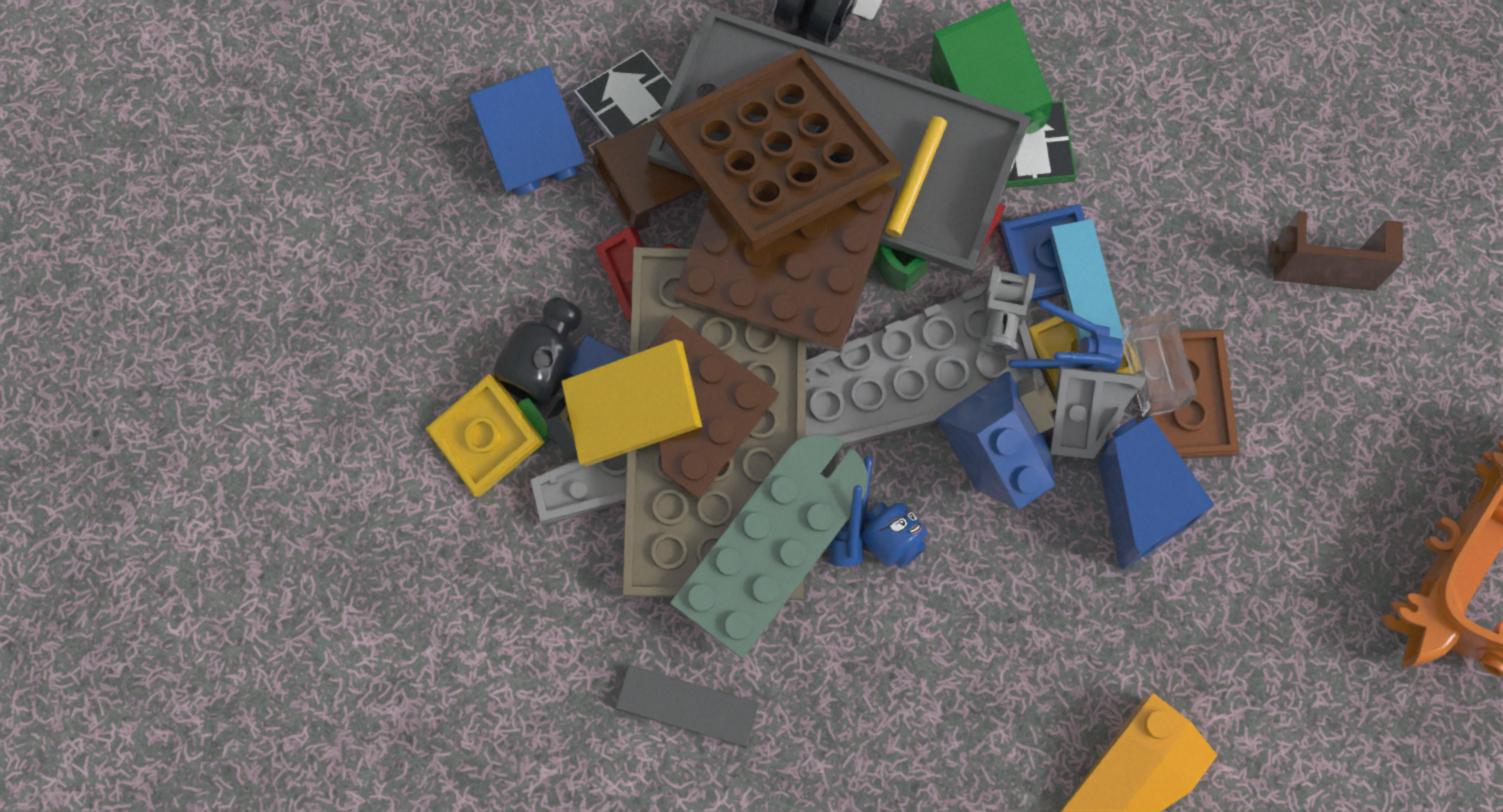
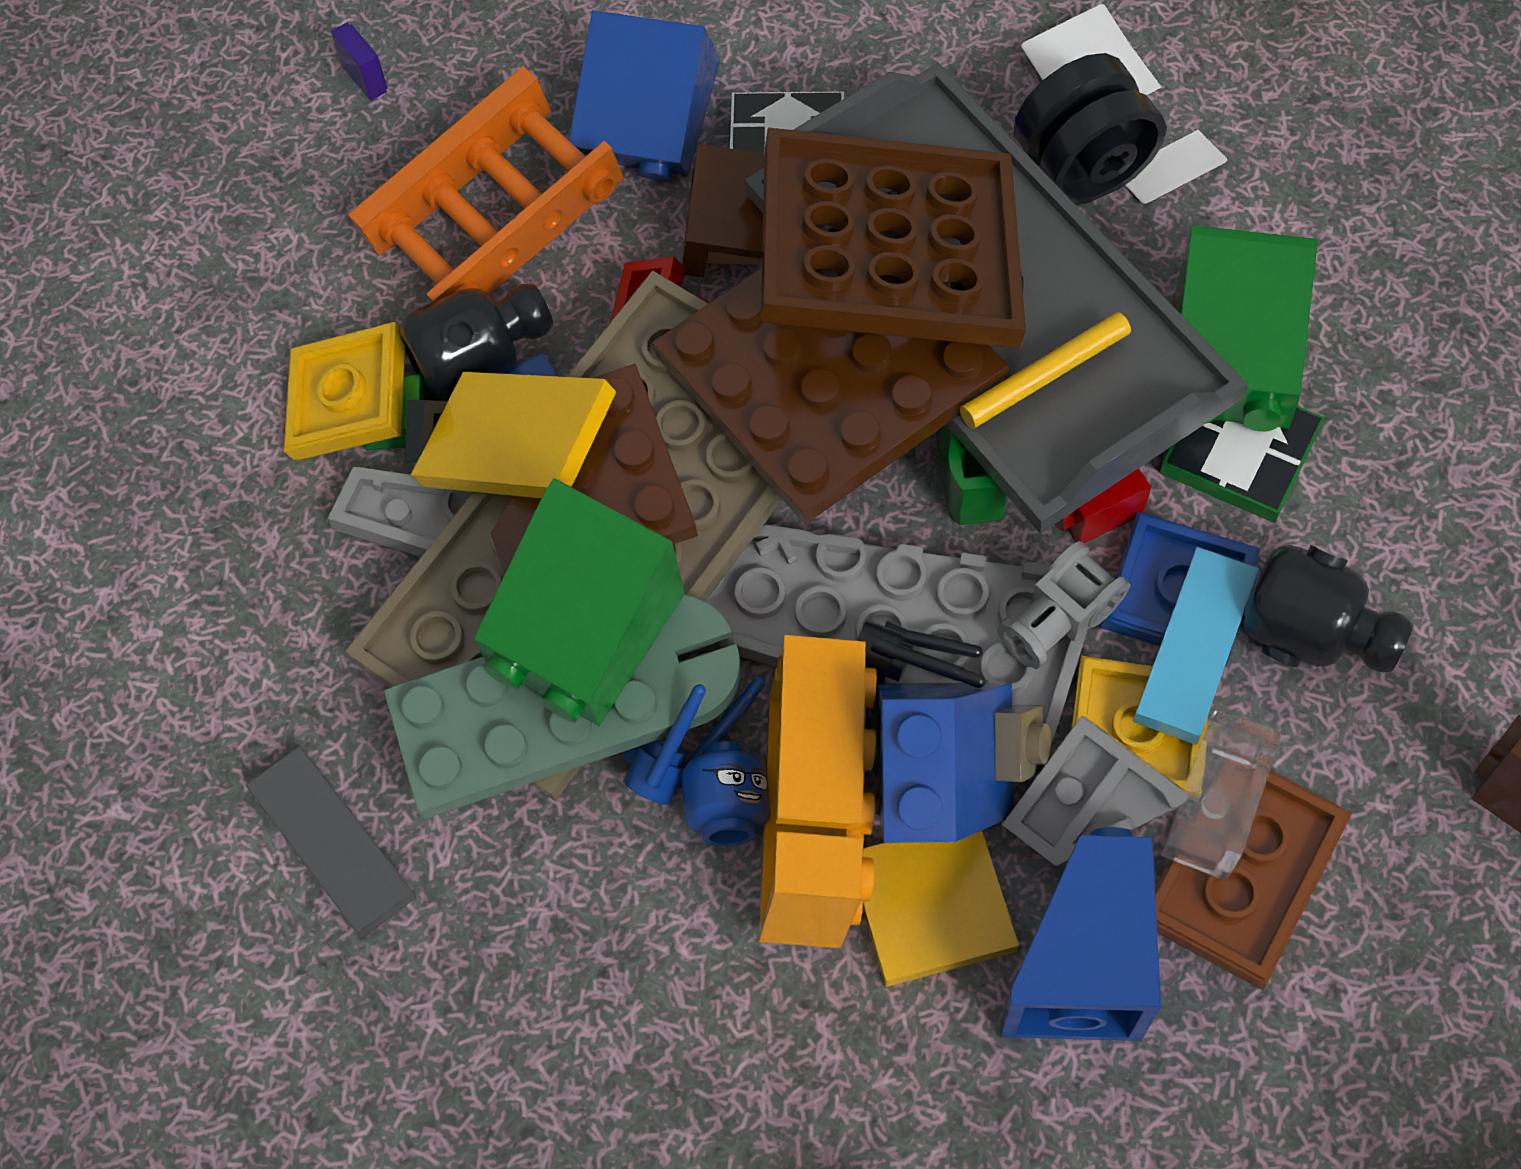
camera: 40 degrees right, 10 degrees down
(316, 209) = (359, 60): none -> dark purple tile
(448, 226) = (455, 159): none -> orange fence
(765, 486) = (579, 604): none -> green slope
(928, 399) = (891, 650): none -> black plant
(951, 500) = (816, 795): none -> light orange piece
(1044, 529) = (935, 908): none -> yellow tile
(1094, 352) = (1145, 727): blue plant -> none
(1138, 225) = (1315, 608): none -> black piece

